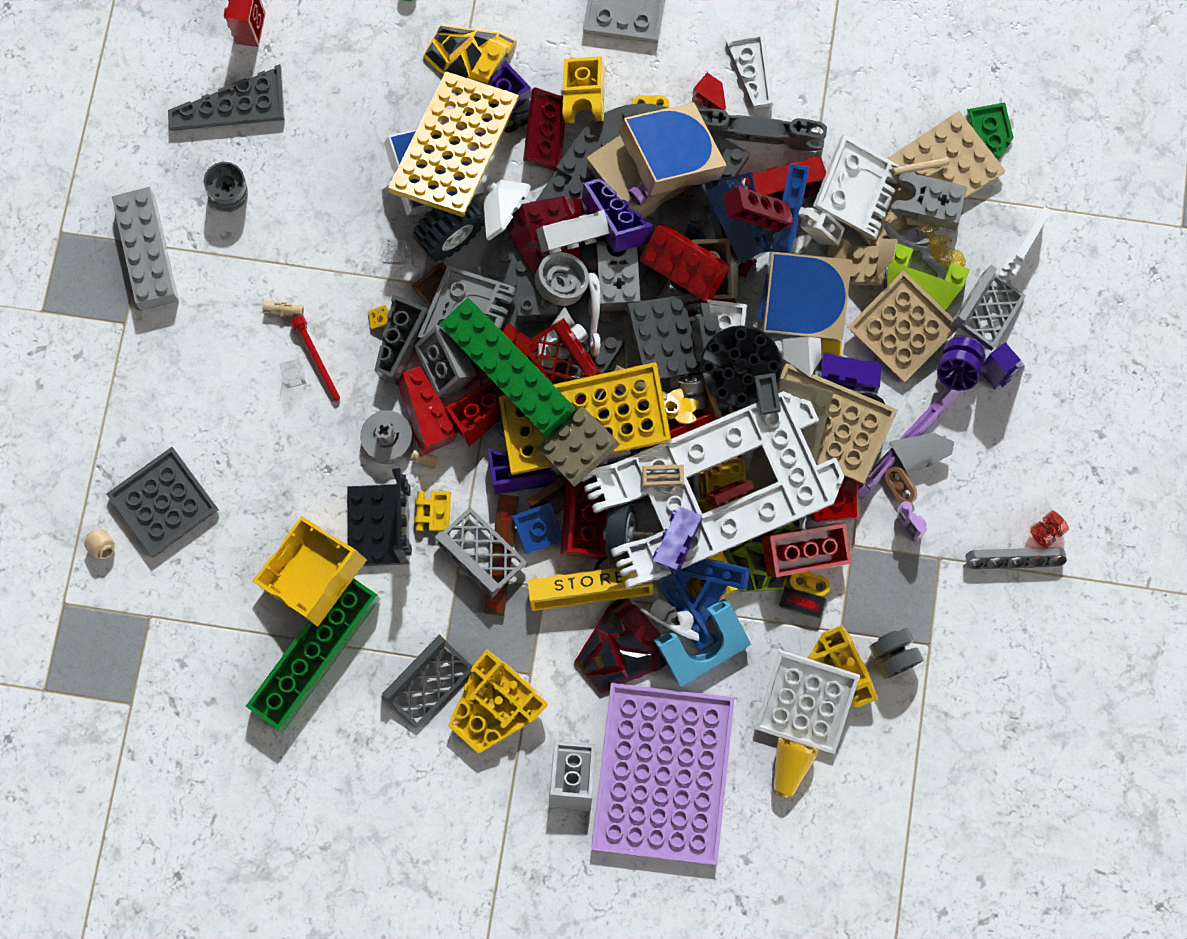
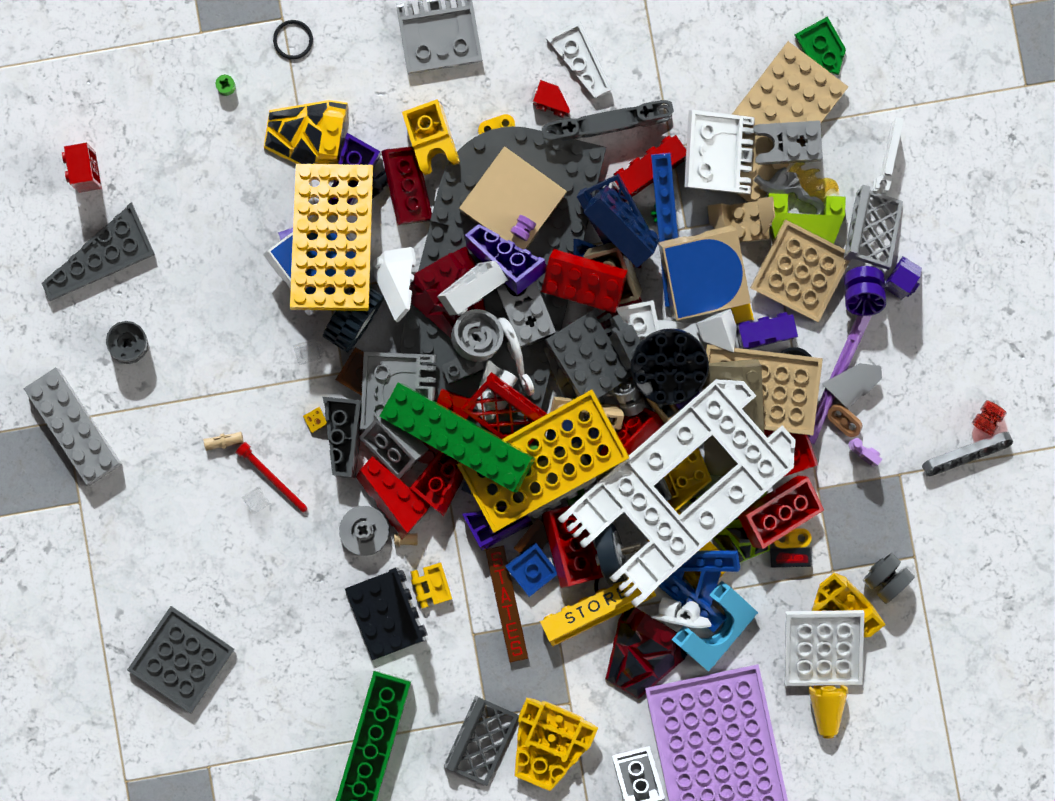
camera: 25 degrees left, 10 degrees up
(99, 544) = (139, 718): tan head -> none
(309, 570) = (341, 680): yellow tile -> none
(467, 564) = (480, 624): light grey fence -> none
(578, 446) = (548, 492): dark tan plate -> none
(663, 476) = (617, 497): tan tile -> none
(672, 148) = (537, 177): blue tile -> none
(677, 540) = (665, 548): wedge -> none
(682, 407) = (626, 418): yellow plate -> none
(722, 495) = (695, 484): dark red plate -> none
(758, 209) = (637, 214): dark red brick -> none
(767, 394) = (703, 387): dark grey tile -> none
(821, 226) = (697, 200): white hinge -> none
(920, 166) = (768, 112): tan piece -> none

